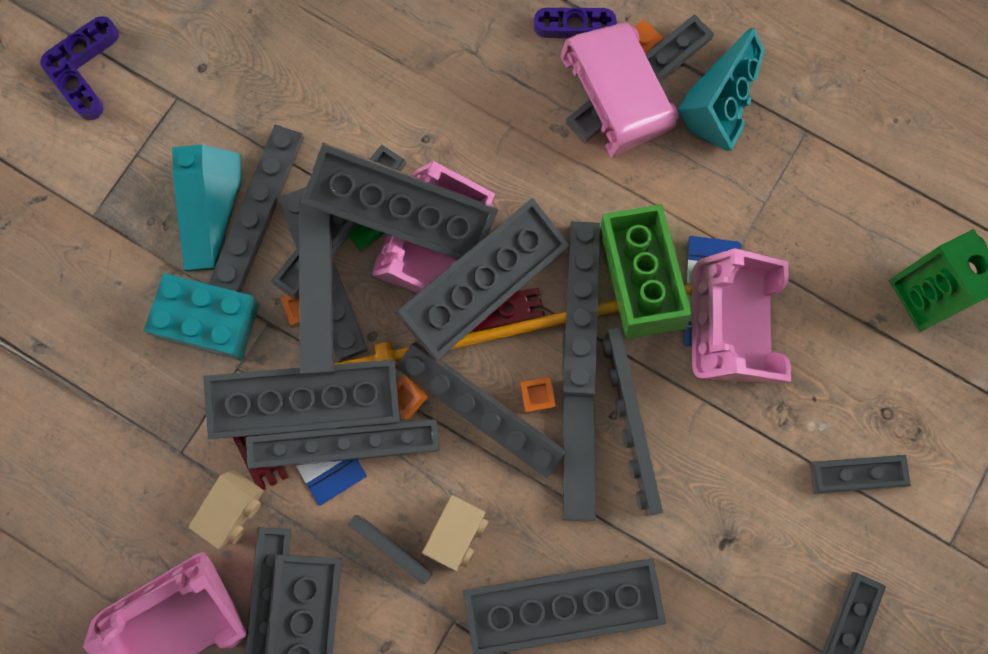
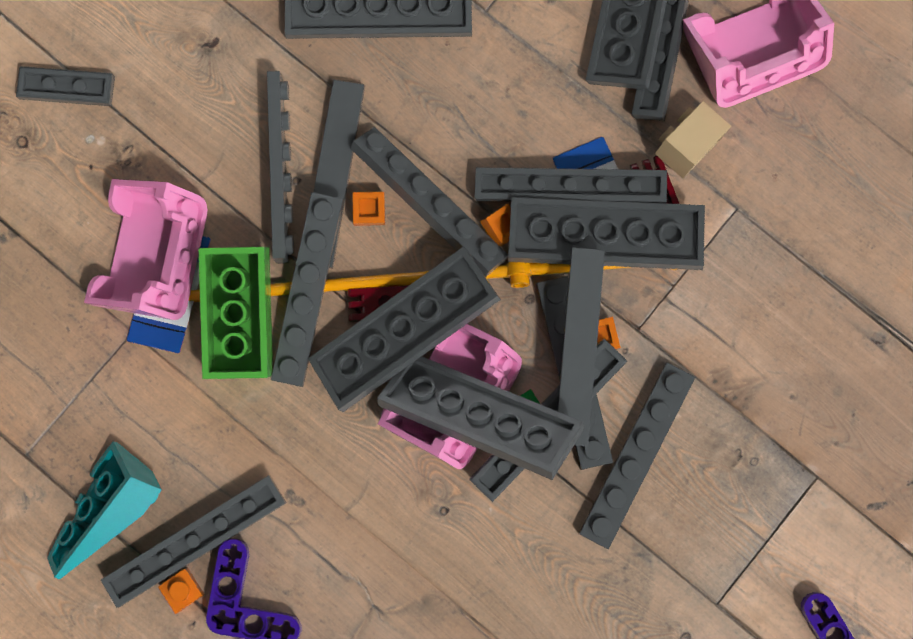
camera: 170 degrees left, 5 degrees up
(202, 316) = (704, 339): teal brick -> none
(204, 196) = (692, 472): teal wedge -> none
(390, 548) = (536, 81): dark grey tile -> none
(455, 533) = (471, 86): tan brick -> none
(620, 86) = (218, 528): bright pink windscreen -> none

